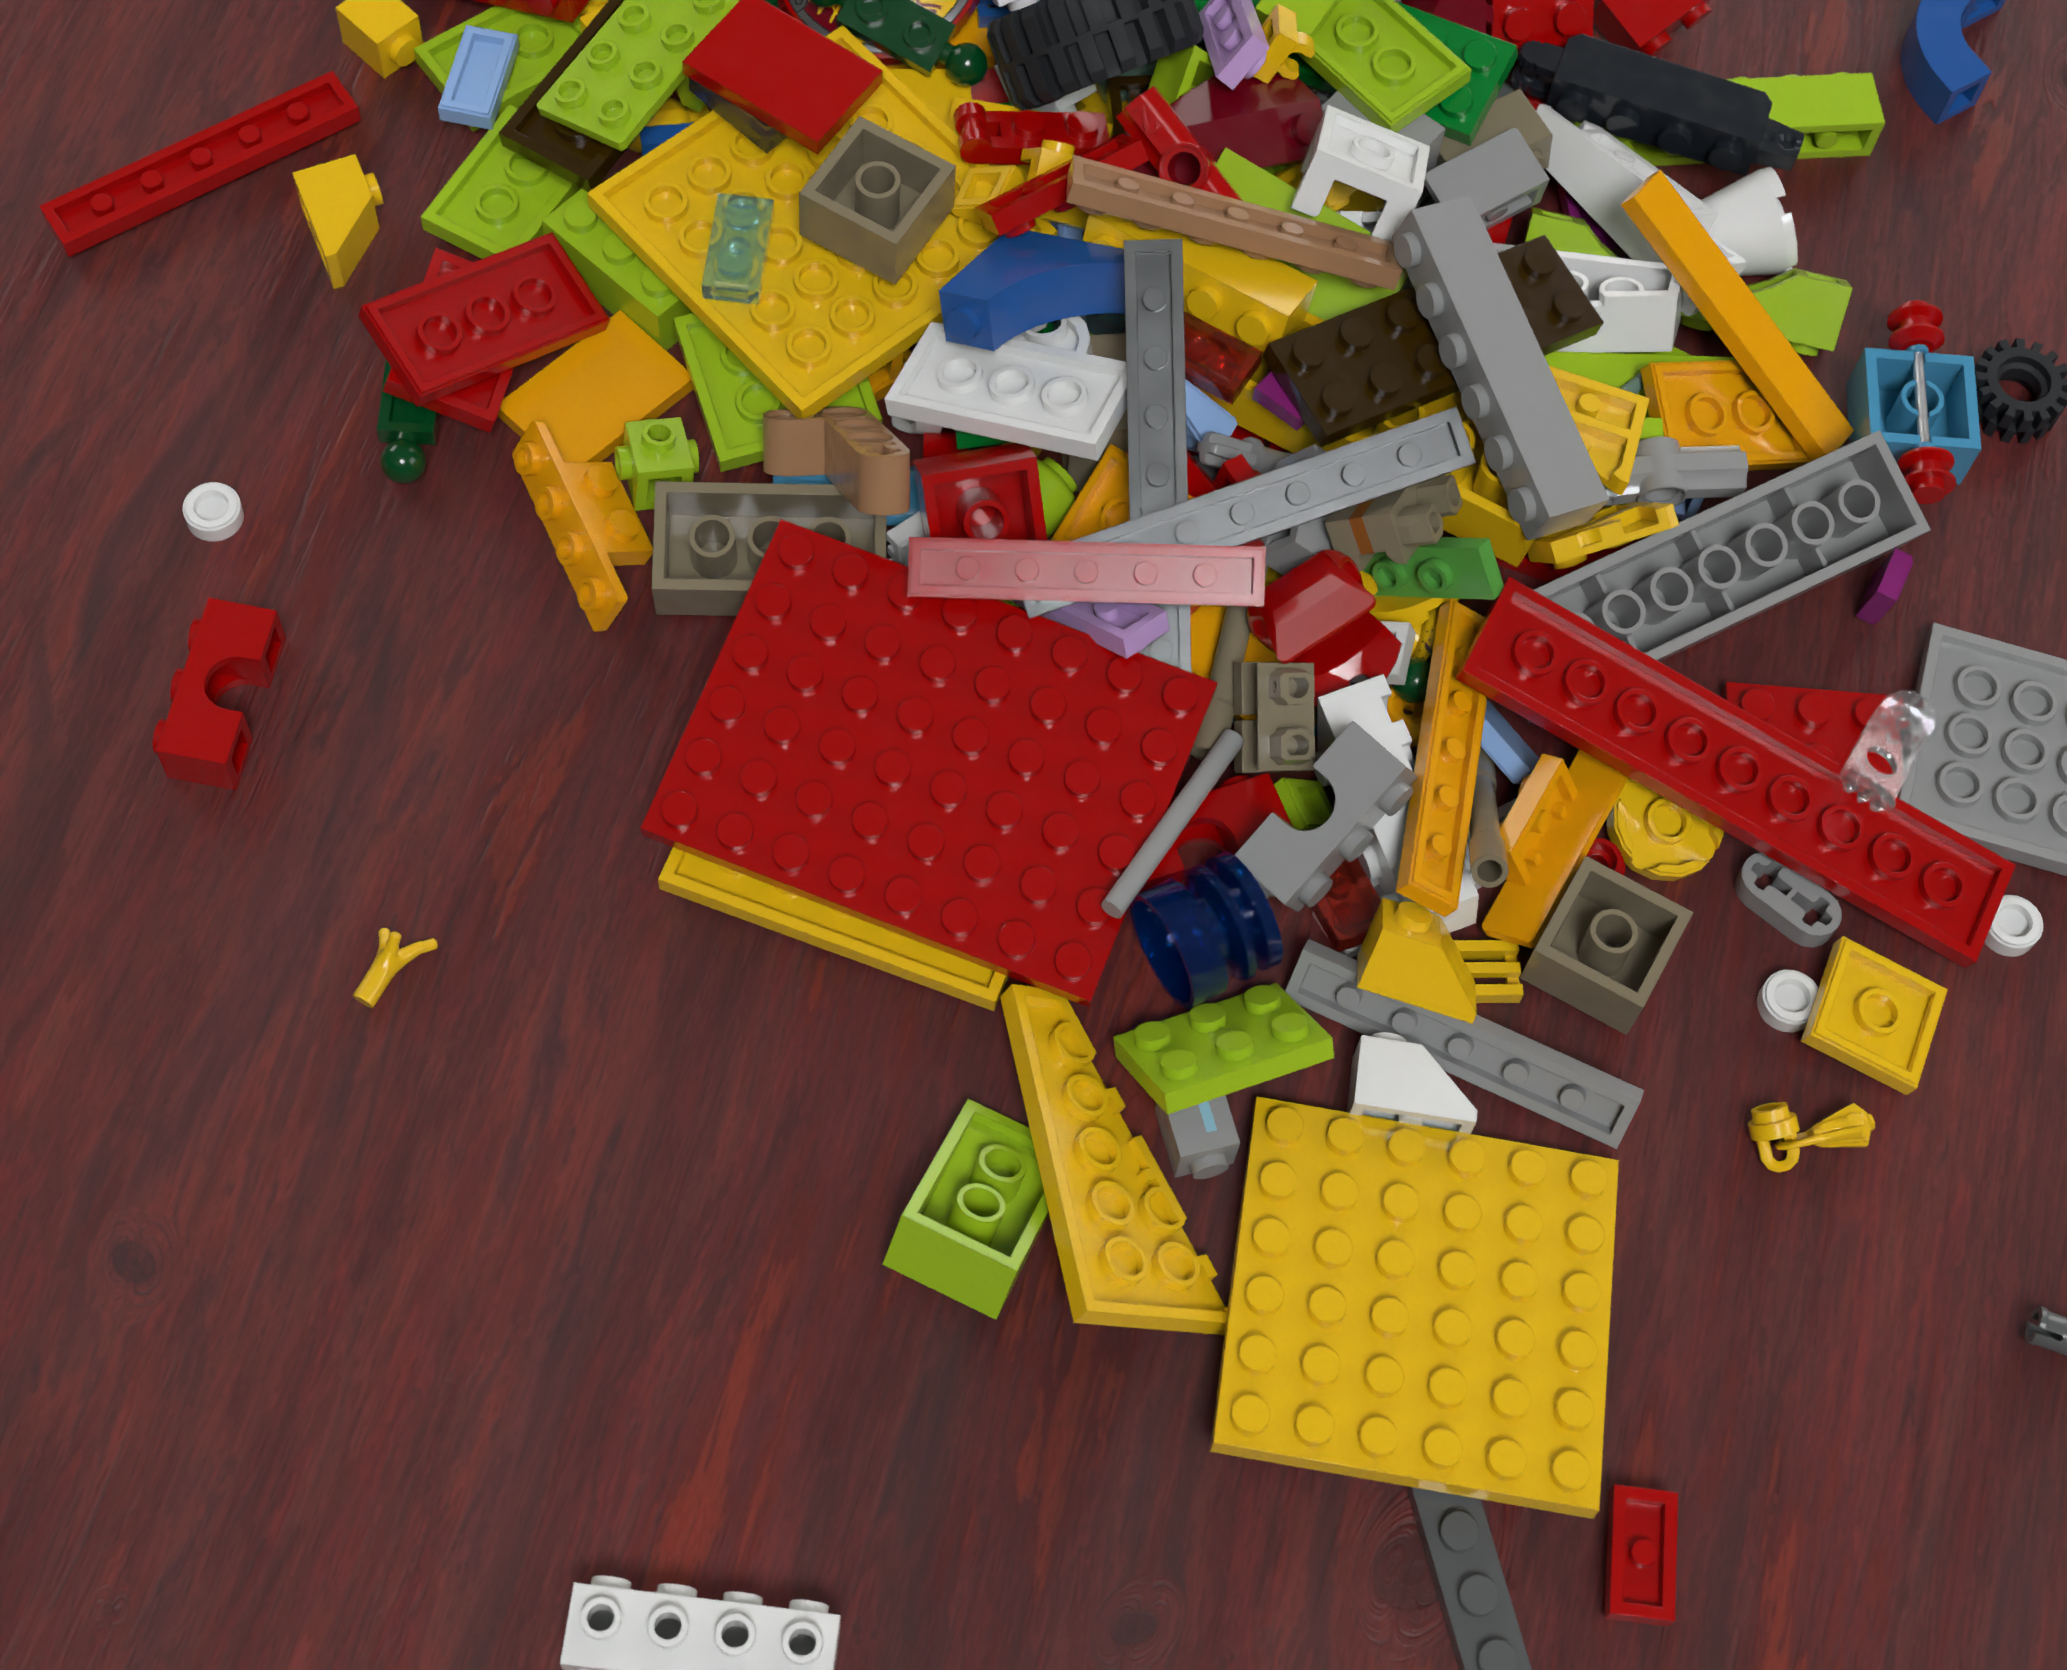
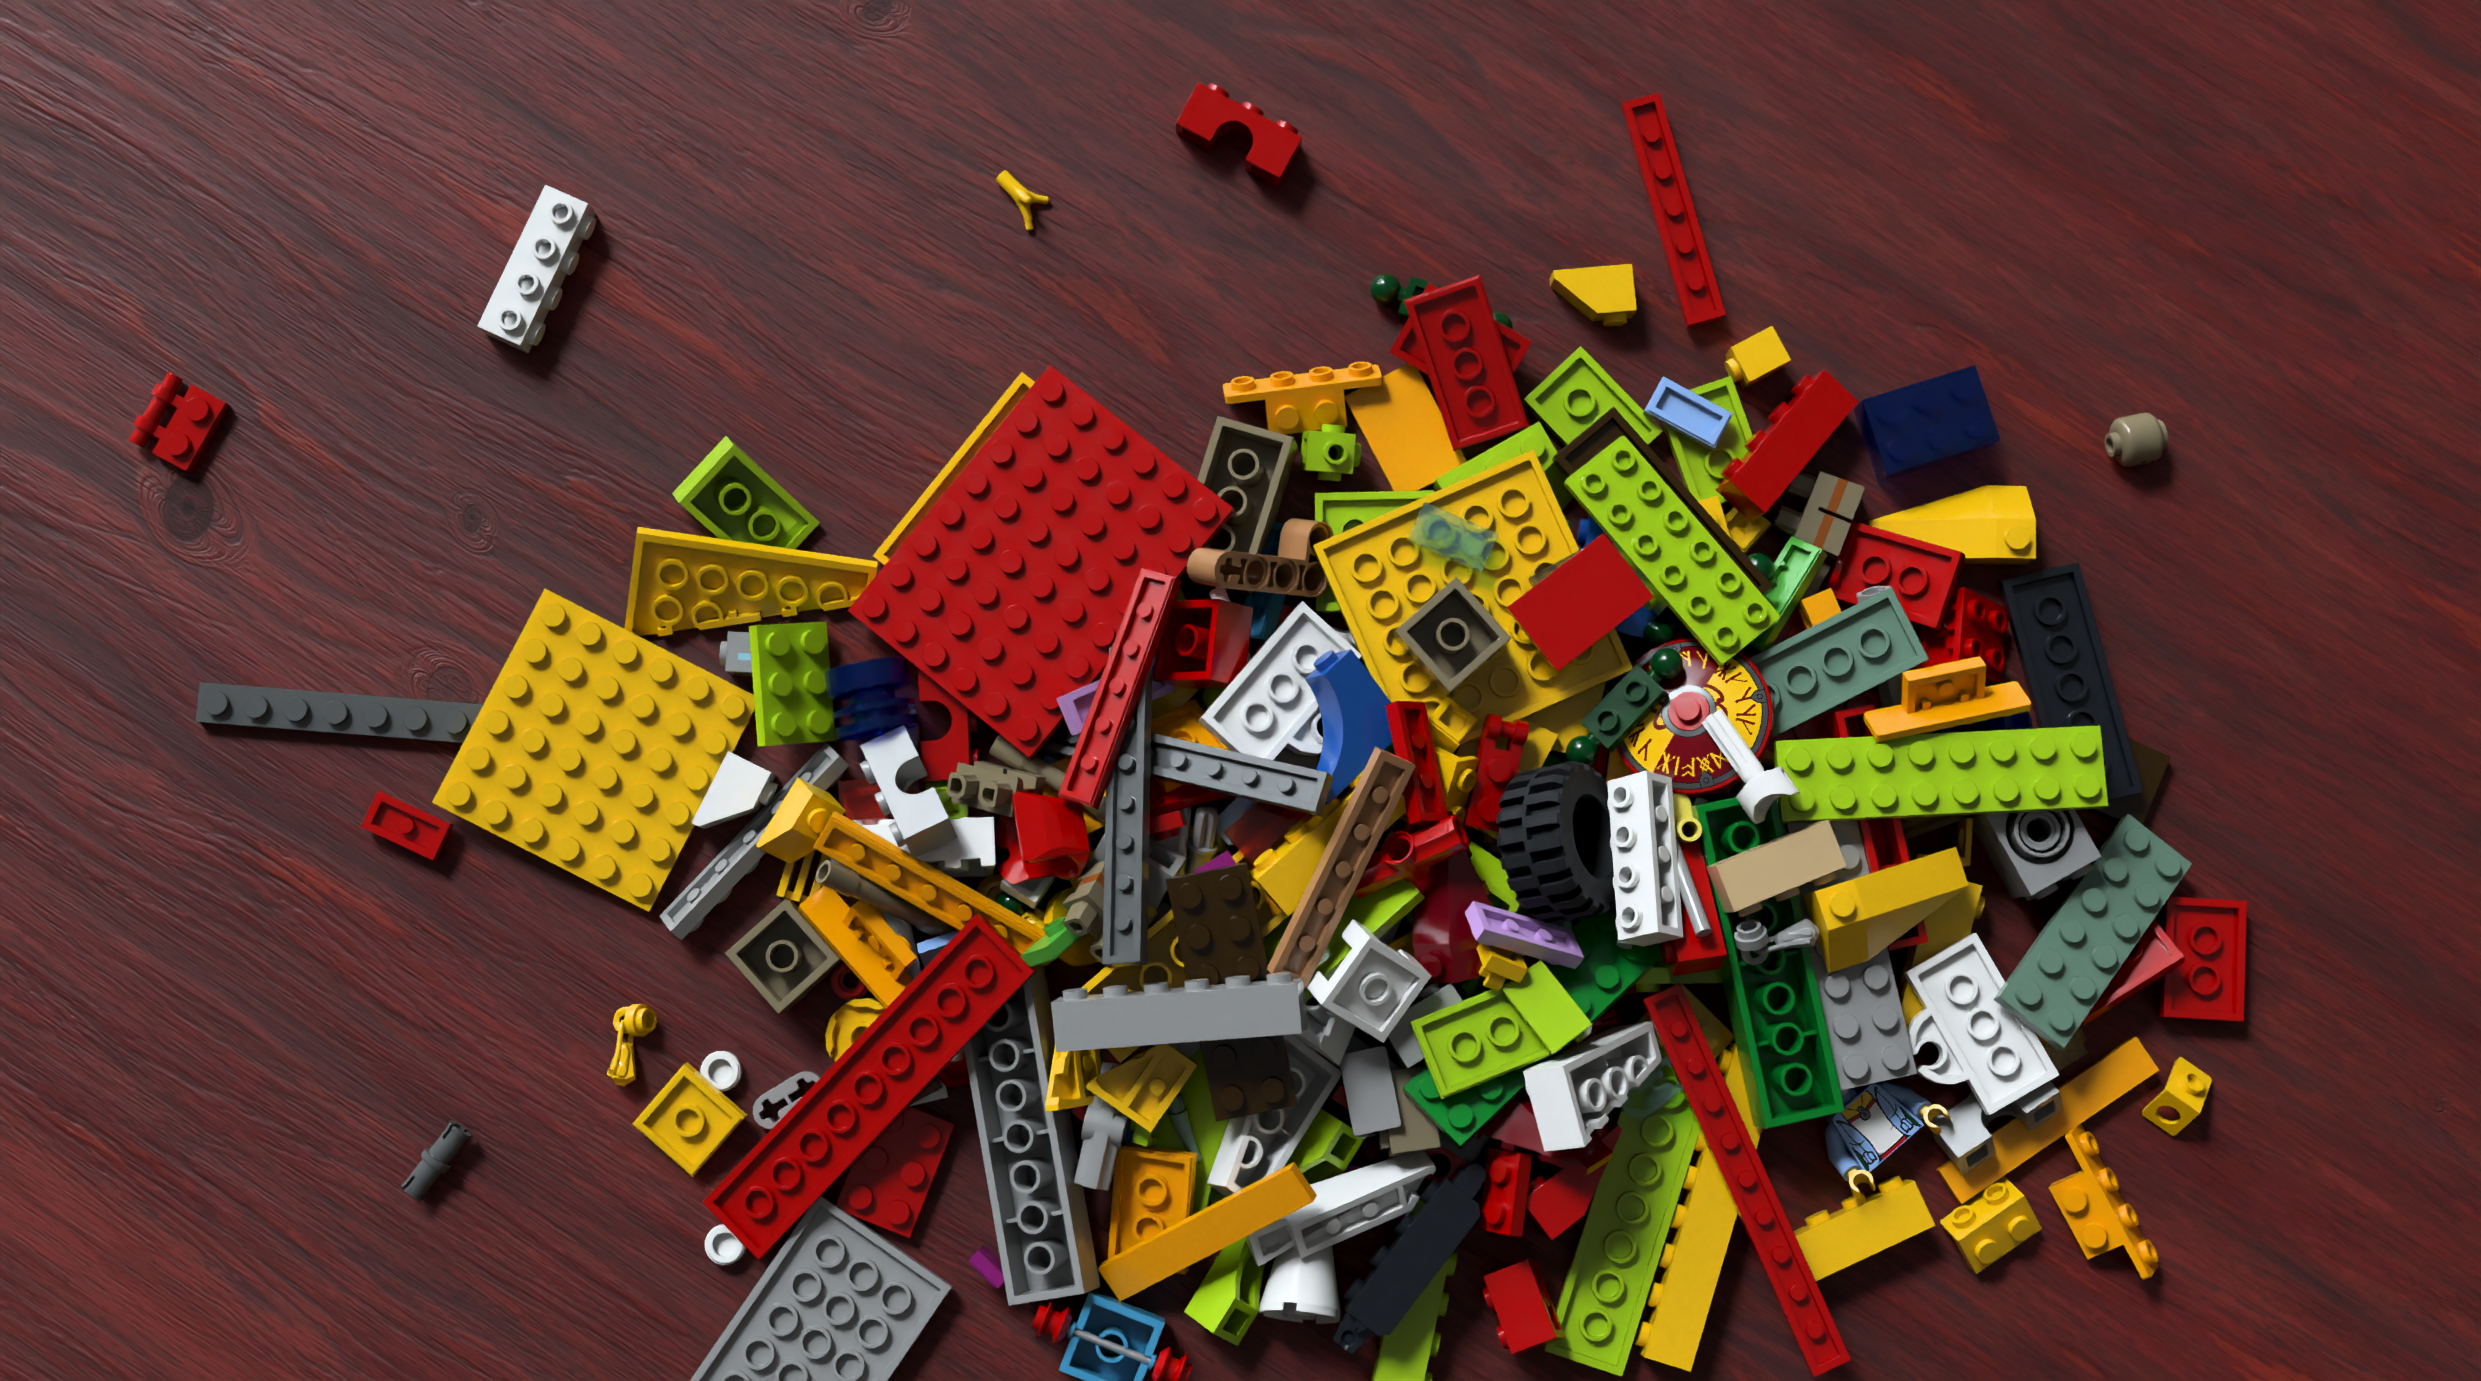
camera: 110 degrees right, 20 degrees up
(213, 511) = (1386, 160): white tile -> none
(1172, 824) = (943, 697): light grey bar -> none
(1896, 733) = (869, 1213): clear piece -> none

